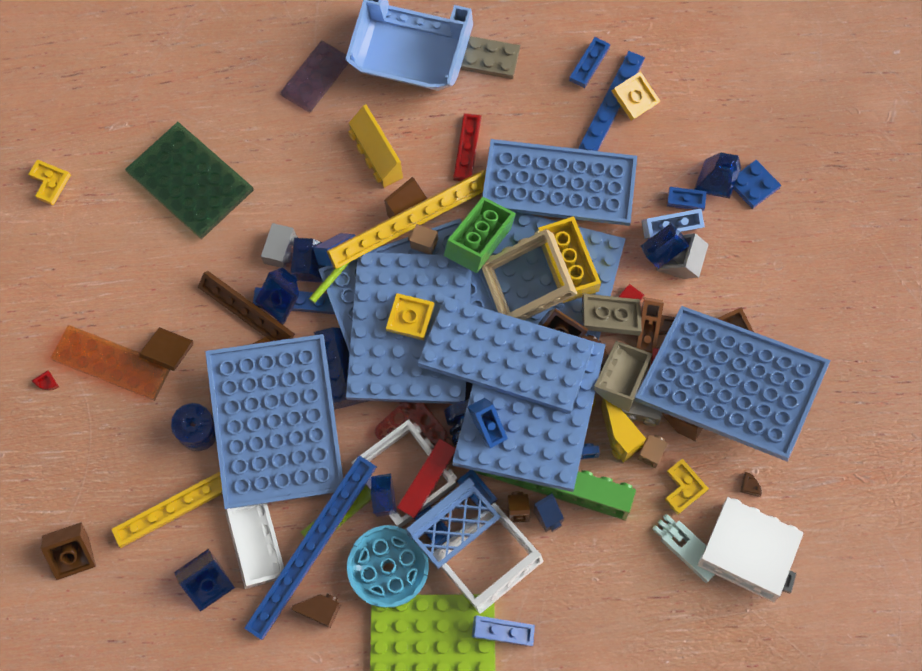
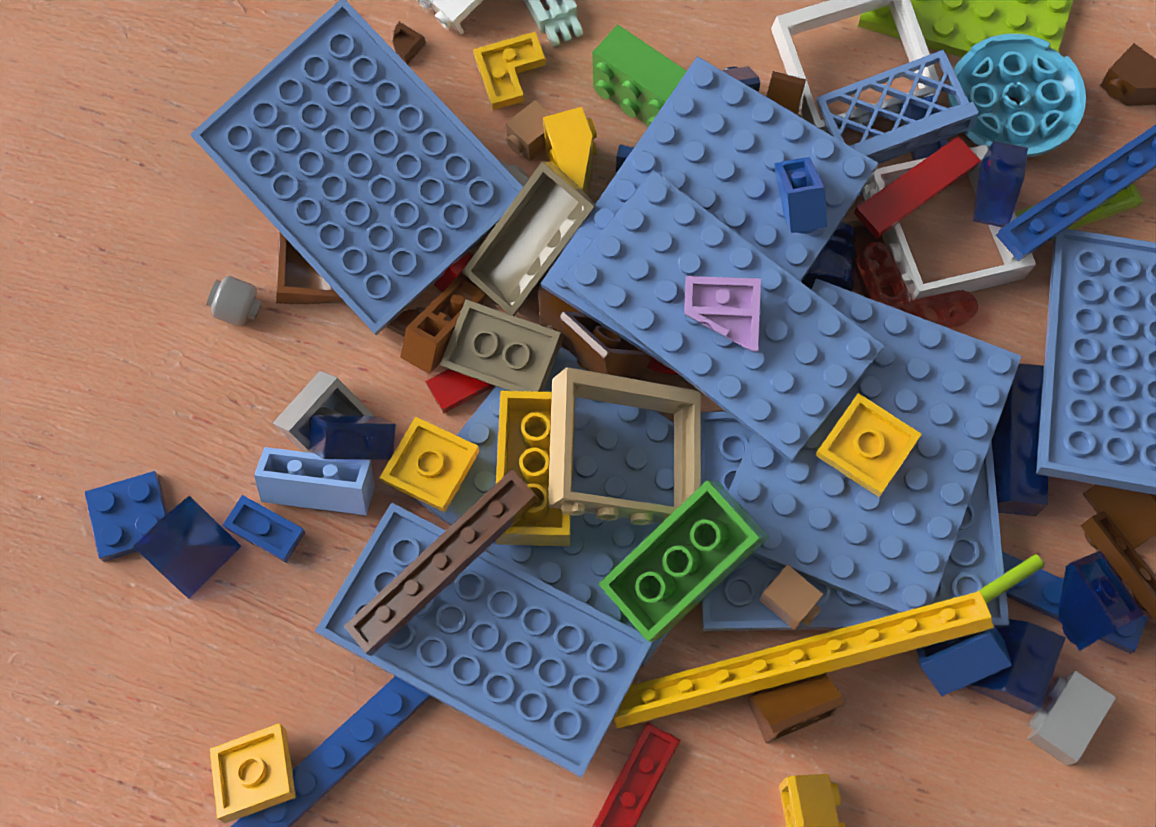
camera: 160 degrees left, 0 degrees up
(504, 347) = (726, 307): none -> lavender wing
(591, 195) = (441, 562): none -> reddish brown plate
(621, 248) = (430, 464): none -> yellow plate
(762, 299) = (233, 301): none -> light grey head

